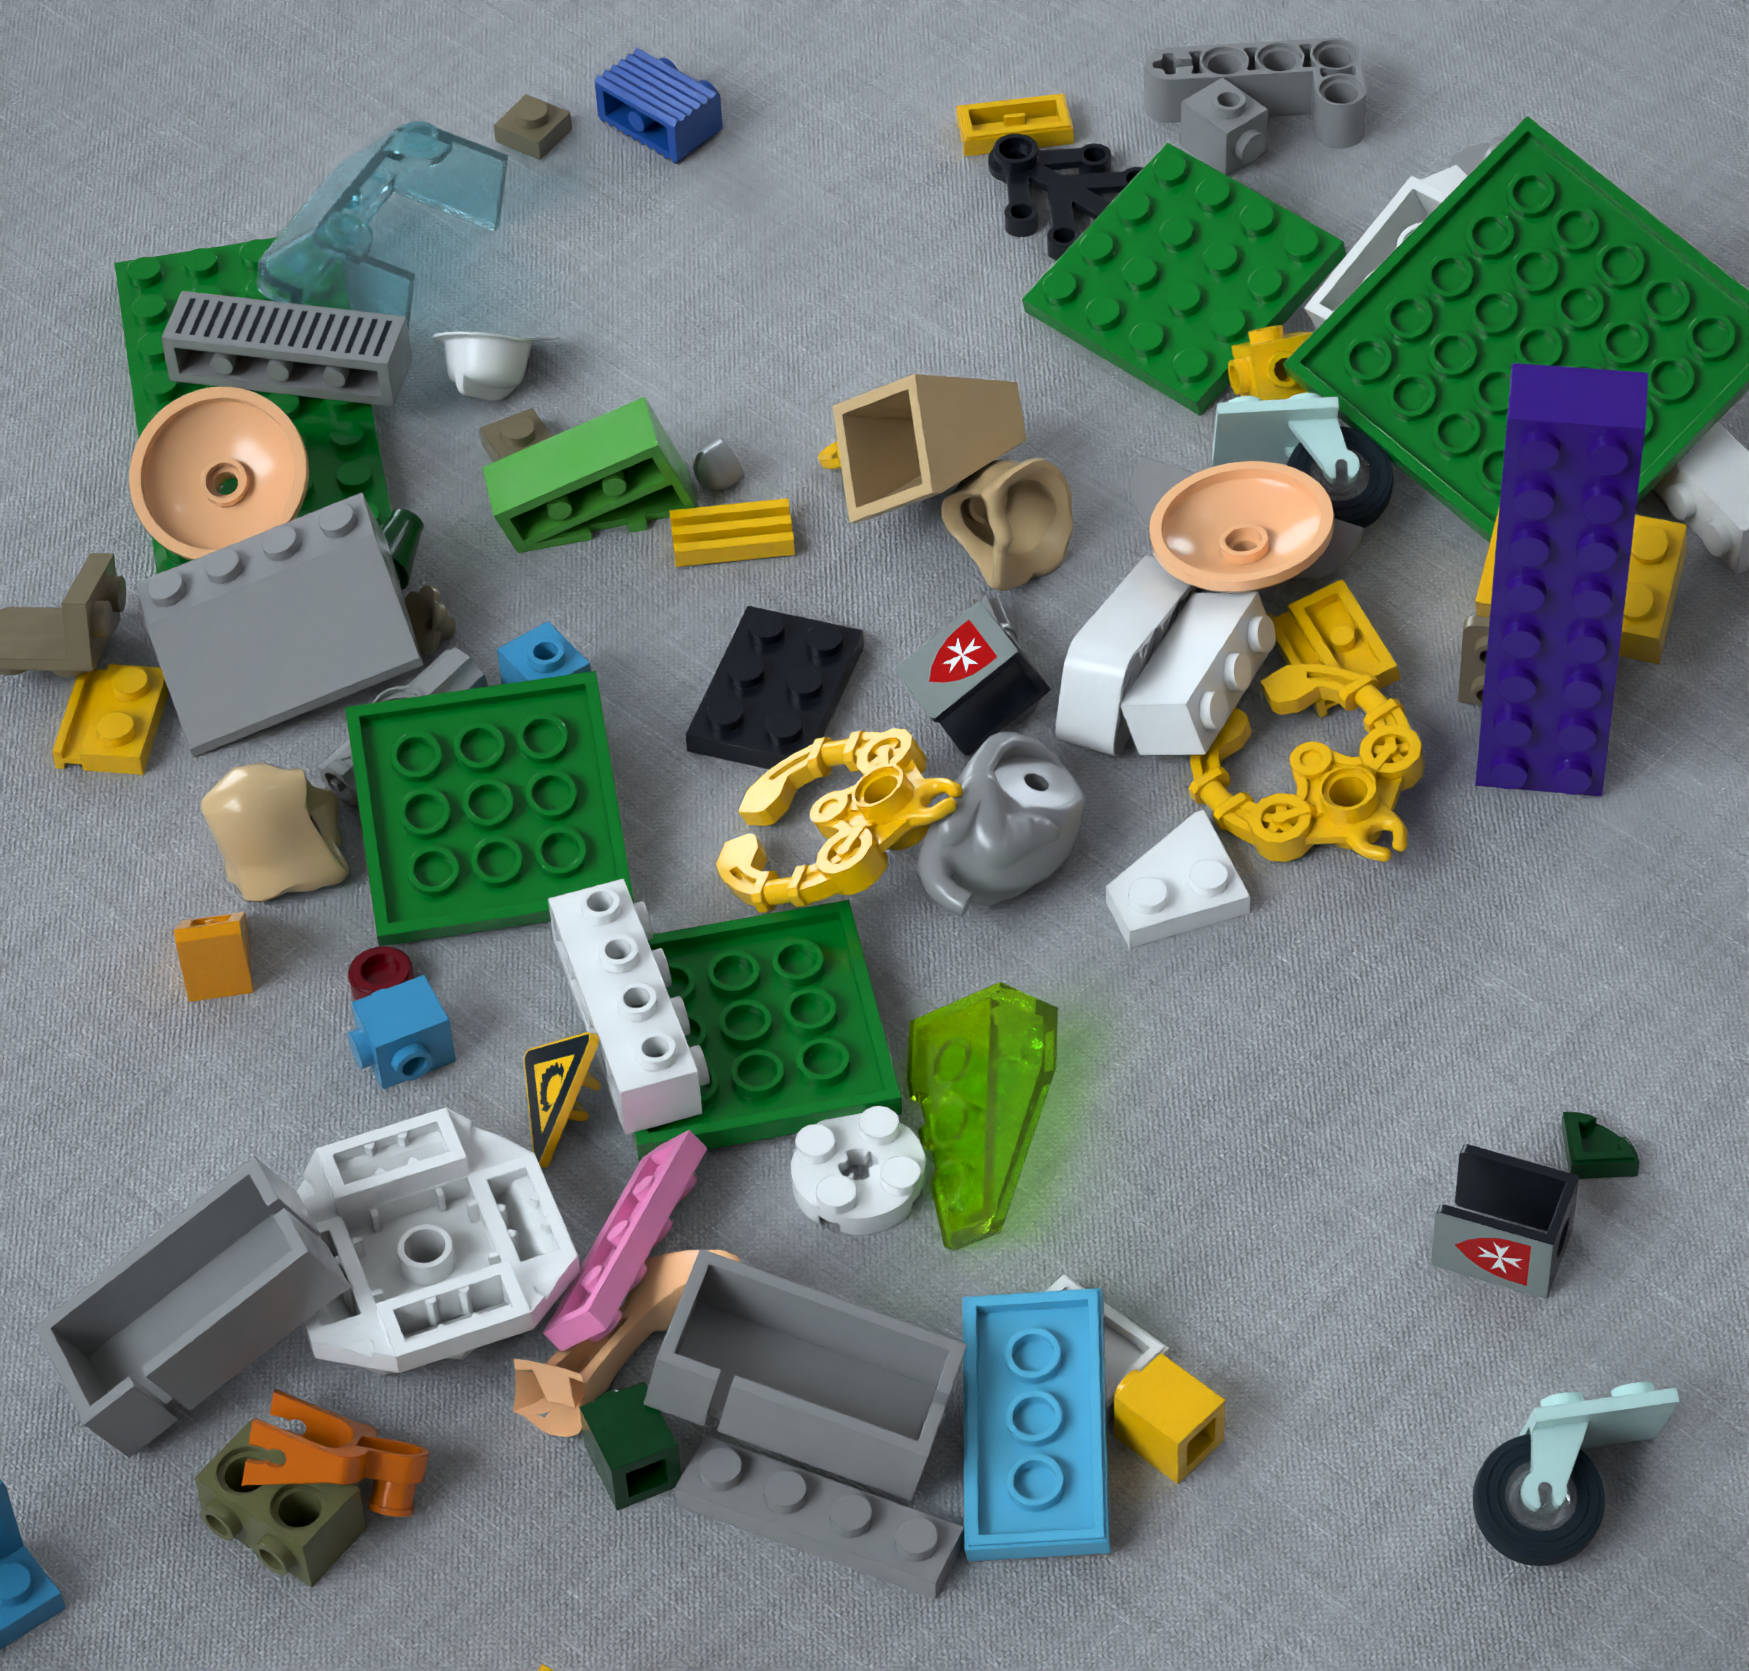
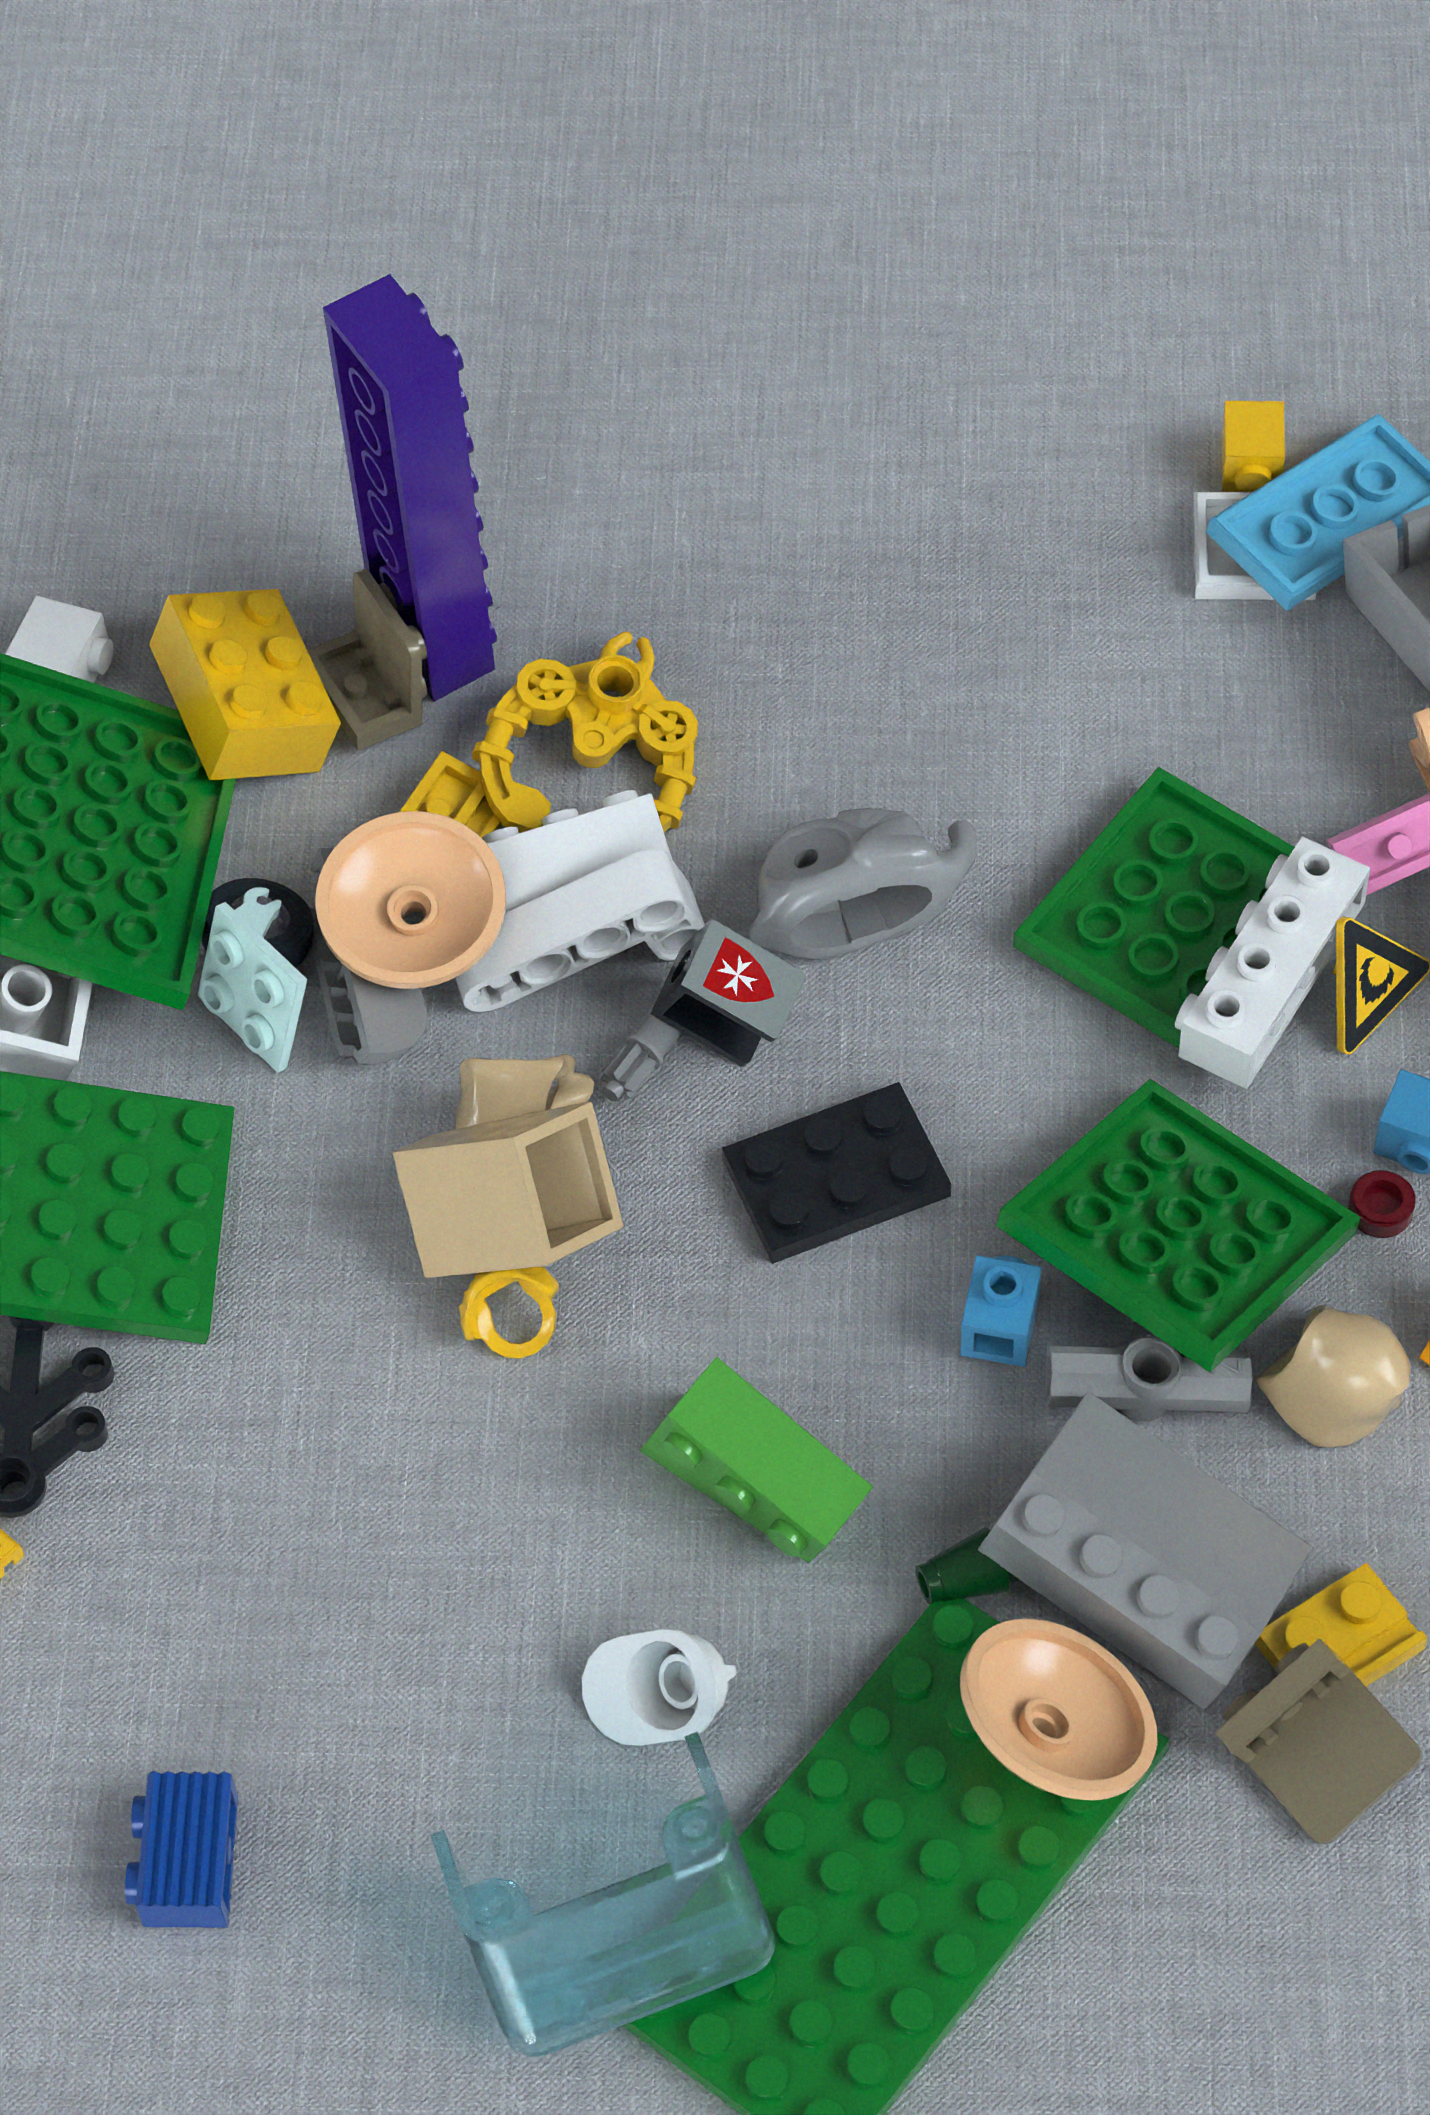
camera: 130 degrees left, 10 degrees up
(287, 348) = (836, 1837): light grey brick -> none
(429, 619) = (1015, 1463): dark tan plant -> none
(513, 434) = (736, 1600): dark tan plate -> none
(532, 126) = (298, 1967): dark tan plate -> none
(717, 466) = (624, 1406): light grey hinge -> none
(732, 532) = (654, 1309): yellow tile -> none
(861, 822) = (953, 957): yellow piece -> none
(866, 1139) = (1241, 738): white plate -> none
(981, 1090) = (1105, 729): clear neon green wedge -> none
(1177, 886) = (780, 768): white wing -> none
(1259, 364) = (156, 1053): yellow brick -> none
(1498, 1249) = (928, 341): piece -> none
(1540, 1492) = (1063, 225): plate -> none
(1596, 1150) = (785, 390): dark green tile -> none

